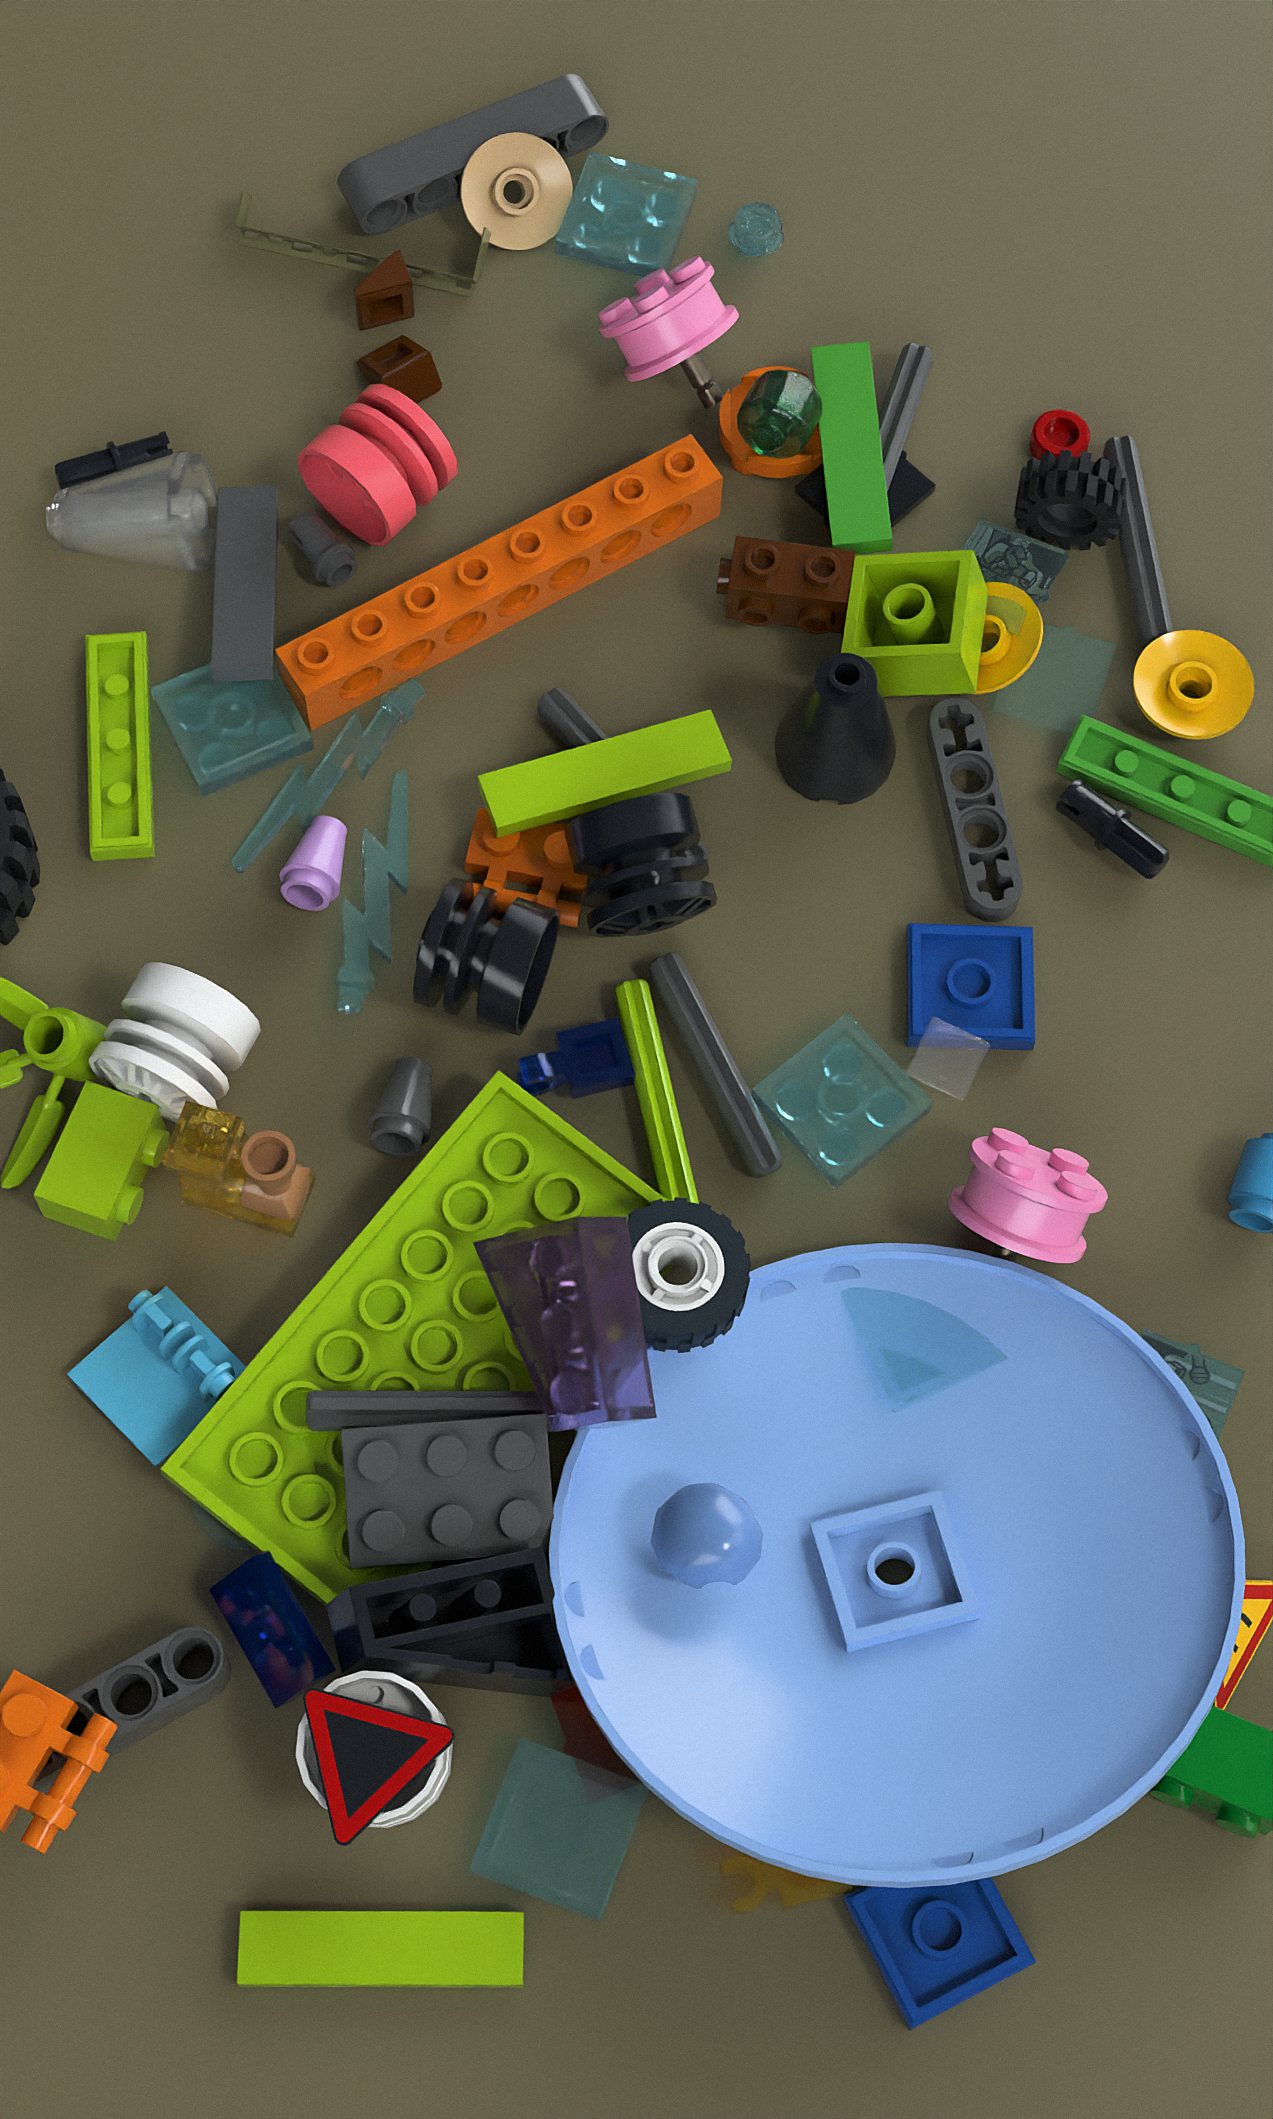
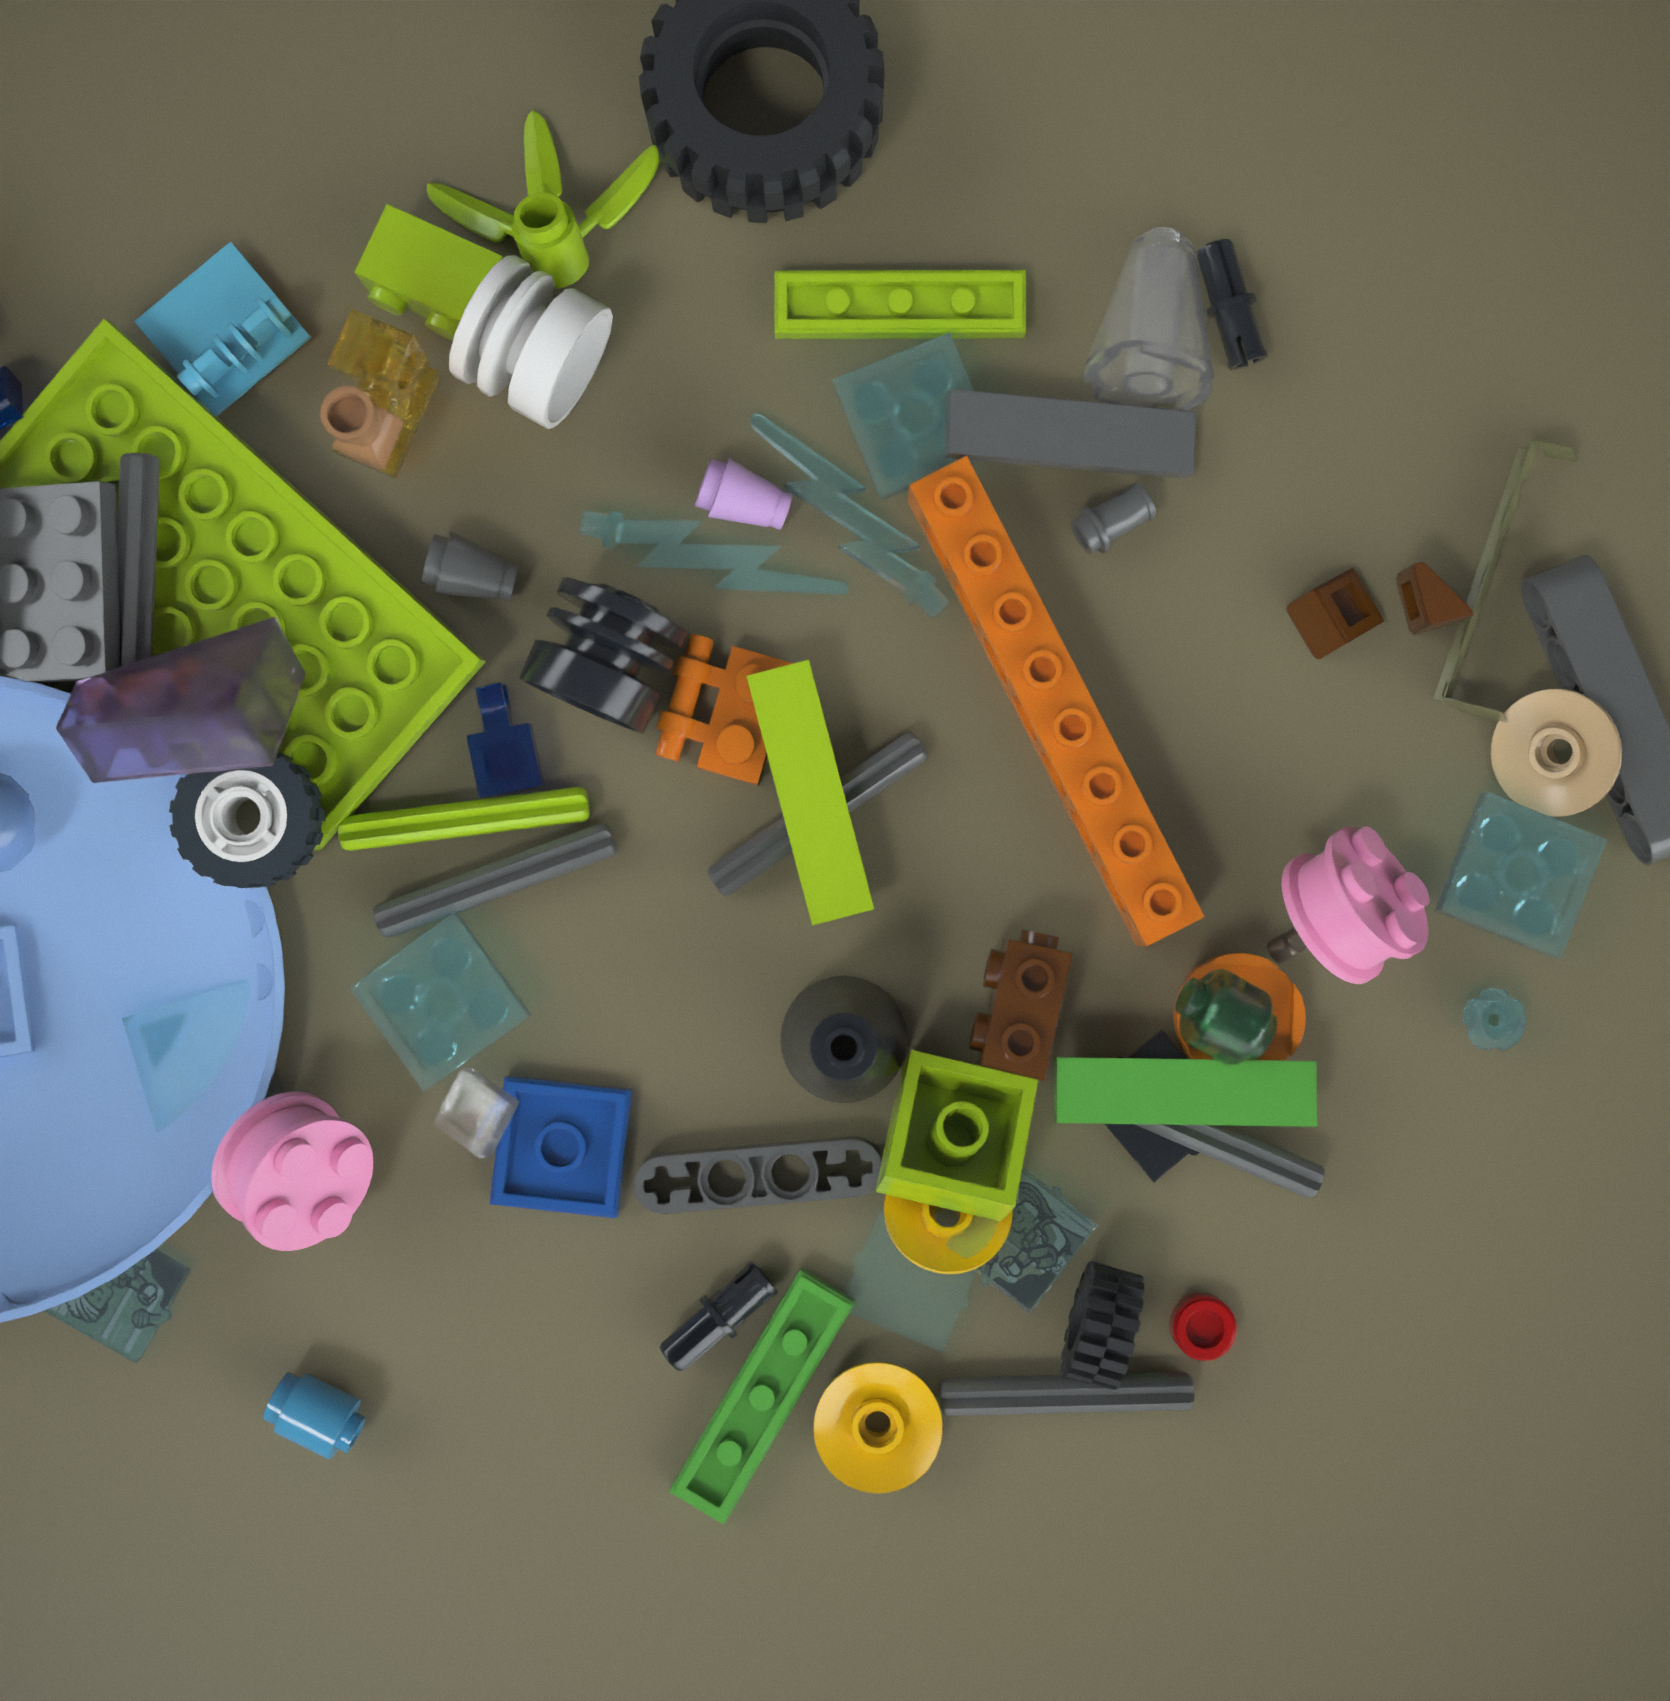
camera: 105 degrees right, 20 degrees up
(377, 464) = (1193, 576): coral wheel -> none
(637, 853) = (684, 817): black wheel -> none

